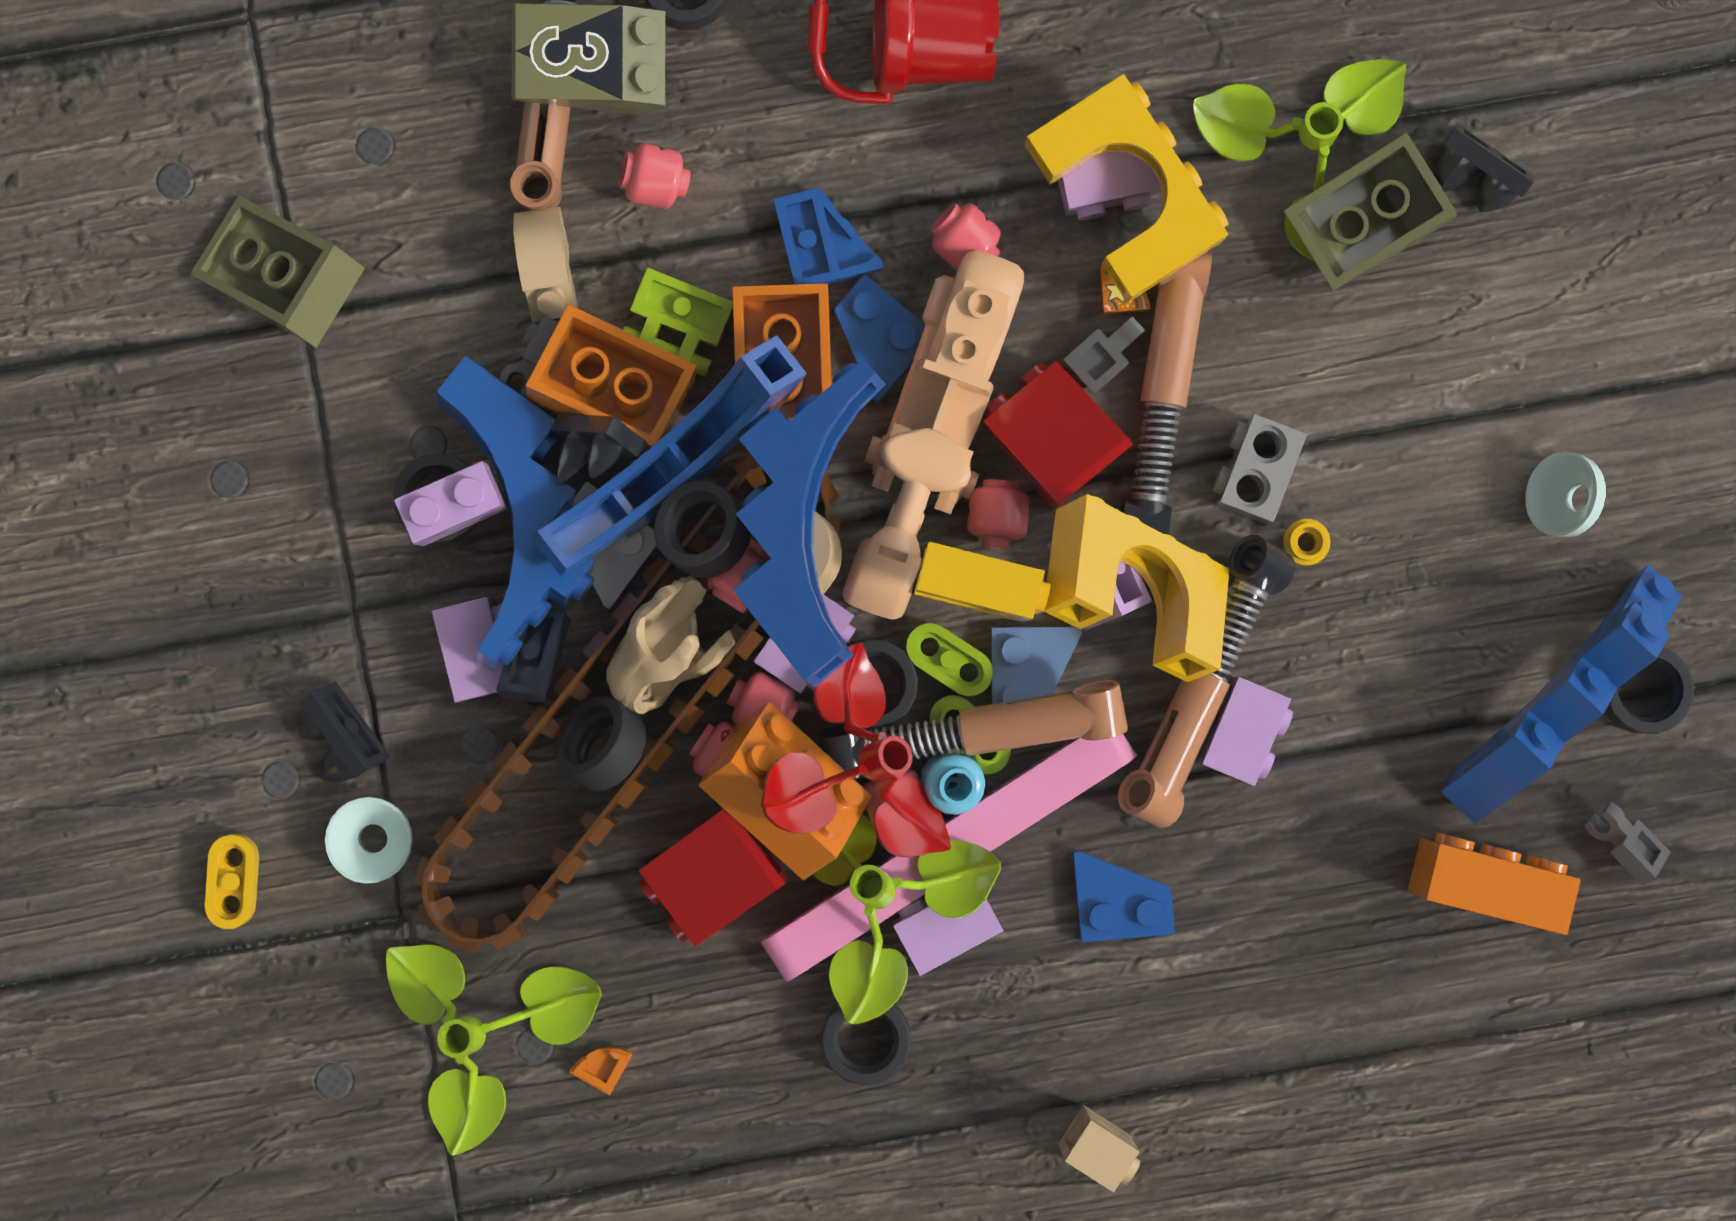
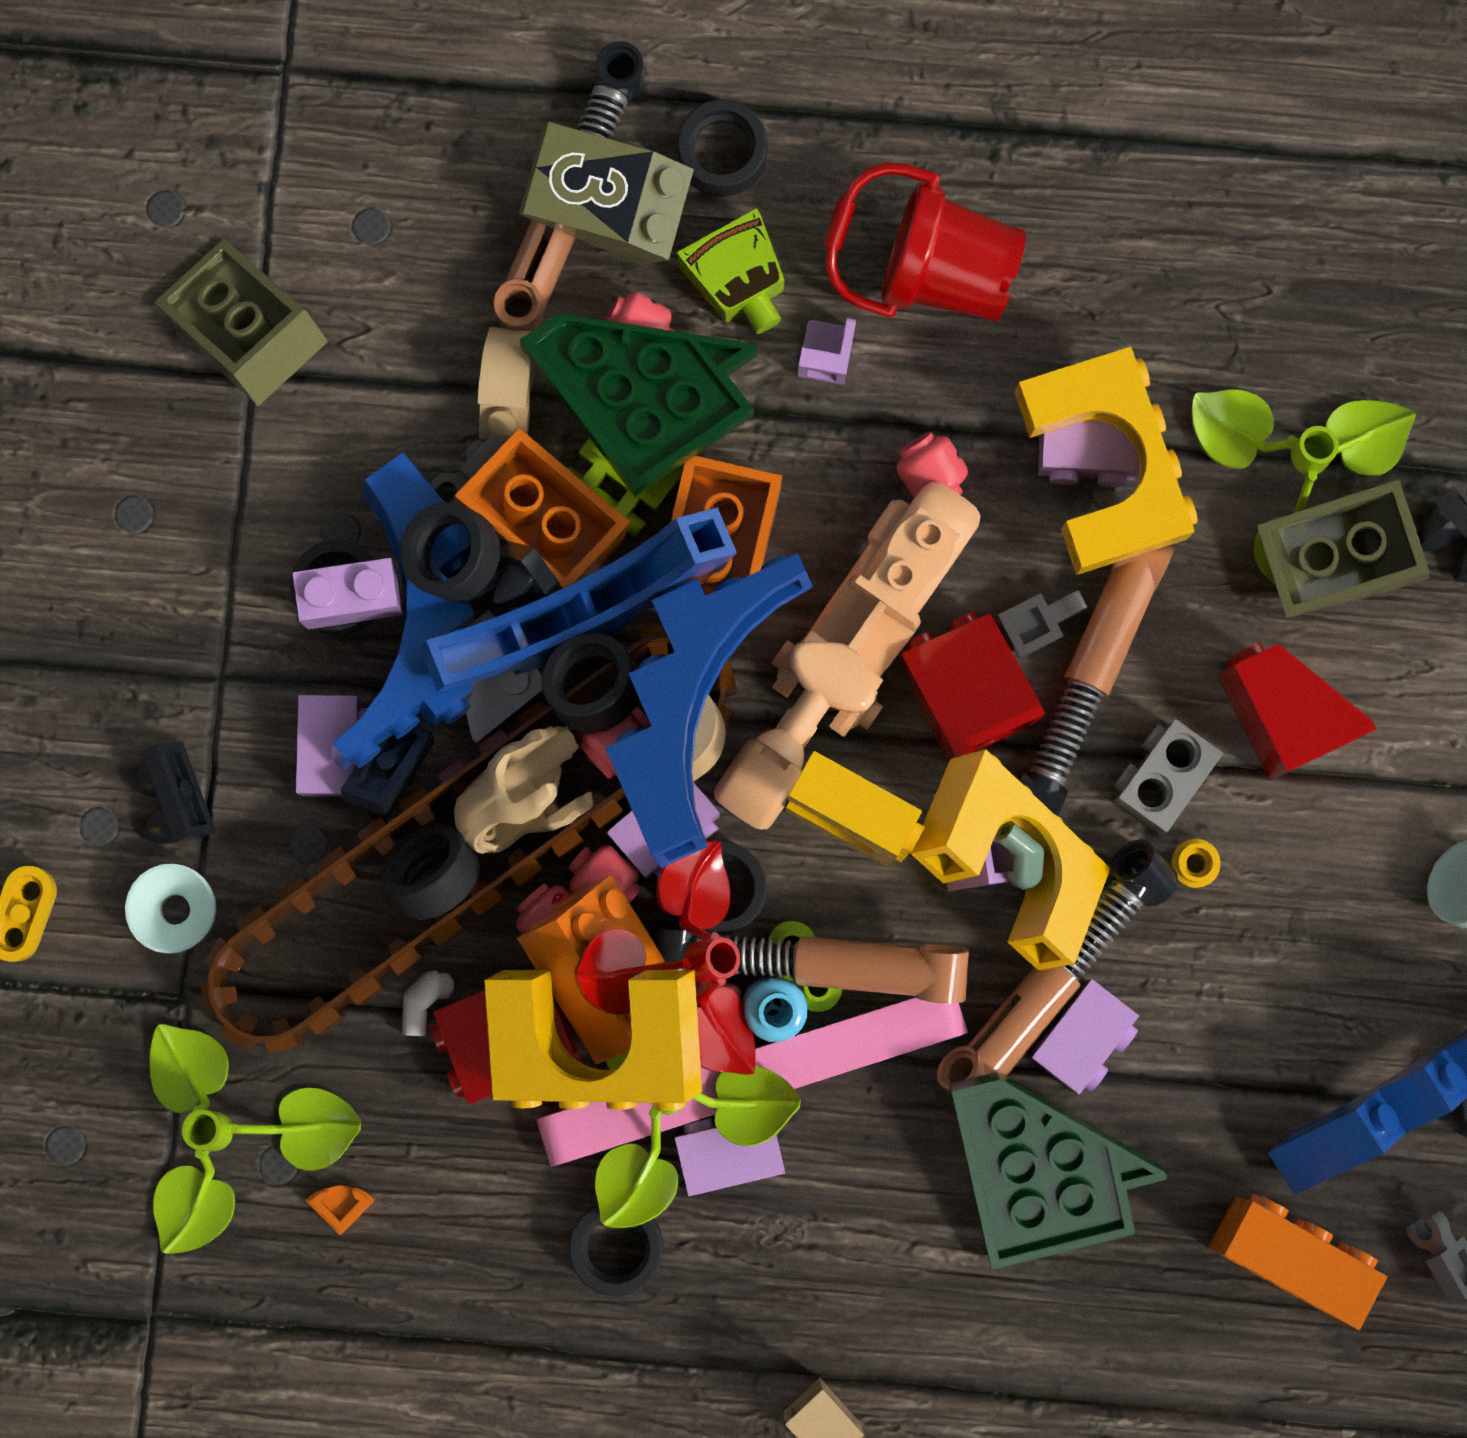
camera: 15 degrees right, 5 degrees down
(504, 440) = (419, 541): none -> black tyre
(623, 857) = (422, 995): none -> white arm
(674, 238) = (642, 390): none -> dark green wing
(732, 98) = (737, 271): none -> lime torso
(748, 899) = (535, 1067): none -> yellow arch
(820, 241) = (787, 434): blue wing -> none
(837, 151) = (826, 351): none -> lavender panel
(879, 331) = (822, 538): blue wing -> none
(949, 659) = (803, 885): lime plate -> none
(998, 513) = (892, 750): coral head -> none
(1029, 660) = (885, 906): medium blue wing -> none
(1113, 300) = (1064, 573): orange tile -> none
(1119, 902) = (911, 1178): blue wing -> none
(1151, 580) = (1027, 856): none -> sand green arm
(1239, 866) = (1042, 1173): none -> dark green wing
(1358, 377) = (1288, 709): none -> red slope

